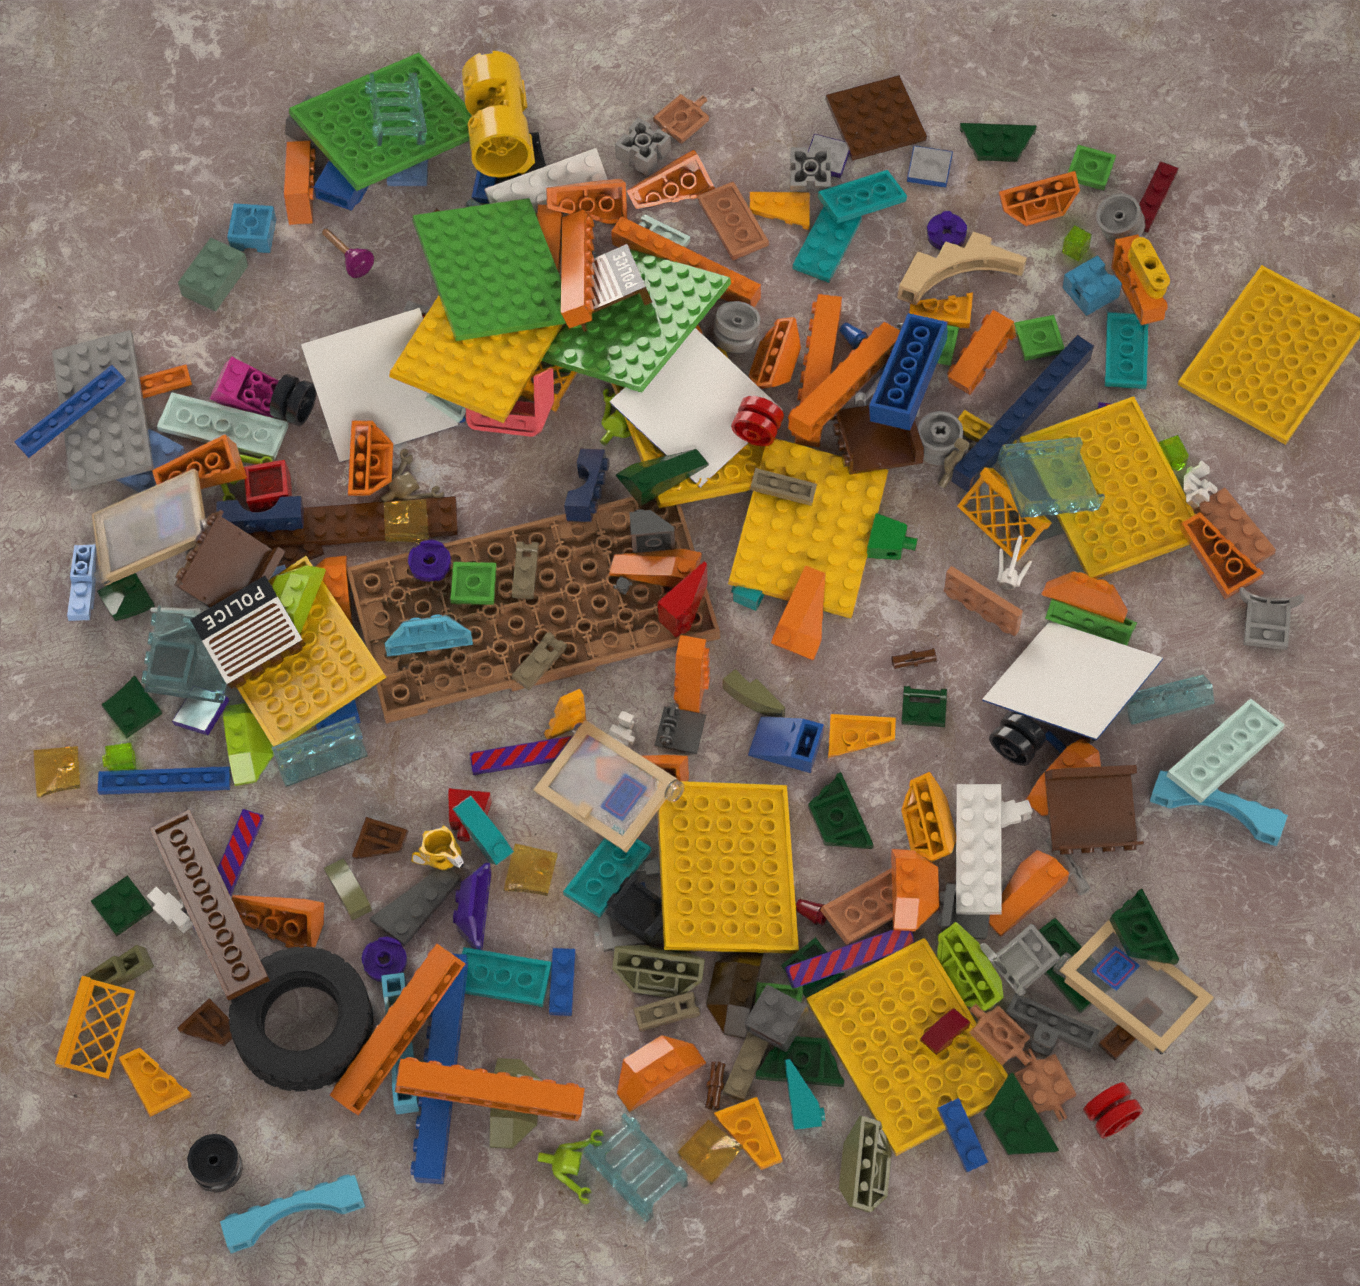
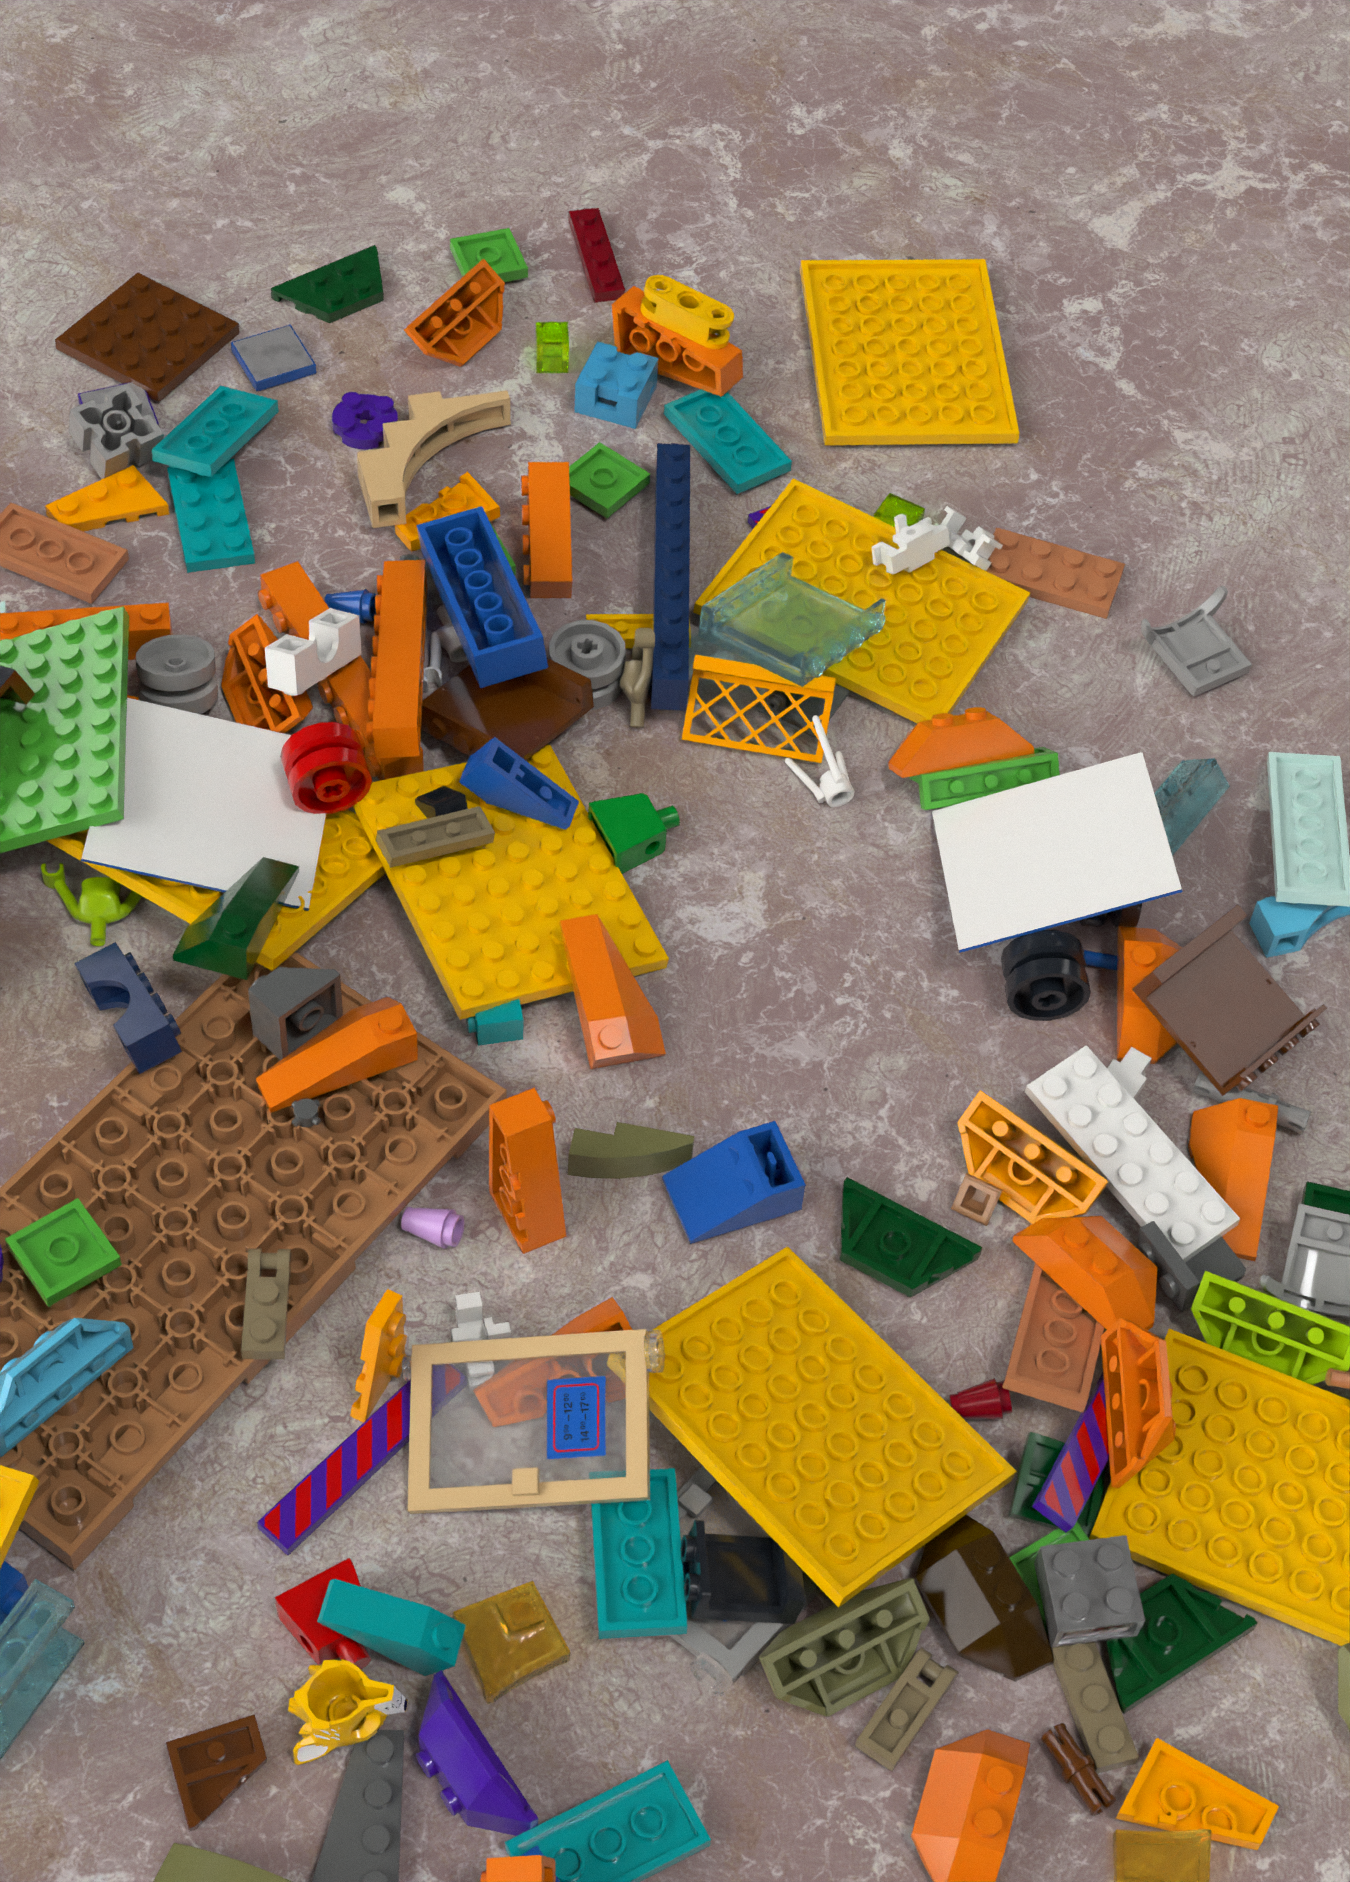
camera: 45 degrees left, 10 degrees down
(525, 570) = (132, 1184): dark tan plate -> none
(562, 982) = (707, 1782): blue plate -> none
(643, 673) = (436, 1226): none -> lavender cone
(680, 729) = (559, 1271): dark grey hinge -> none
(681, 604) = (430, 1082): red slope -> none
(802, 470) = (441, 802): none -> black slope
(803, 1104) = (1232, 1695): teal slope -> none
(814, 356) = (300, 663): none -> white arch
(845, 485) = (515, 785): none -> blue slope
(857, 732) = (820, 1109): light orange wing -> none
(871, 958) = (1135, 1398): none -> orange wedge
(892, 821) = (976, 1199): none -> medium nougat slope
(924, 713) = (880, 1028): dark green plate -> none
(927, 656) = (803, 965): reddish brown pin -> none
(943, 1032) = (1326, 1438): dark red slope -> none
(983, 601) = (835, 829): nougat plate -> none
(1120, 217) = (584, 288): light grey wheel -> none
(1159, 475) = (915, 544): none -> white piece
(1219, 556) = (1076, 602): orange wedge -> none

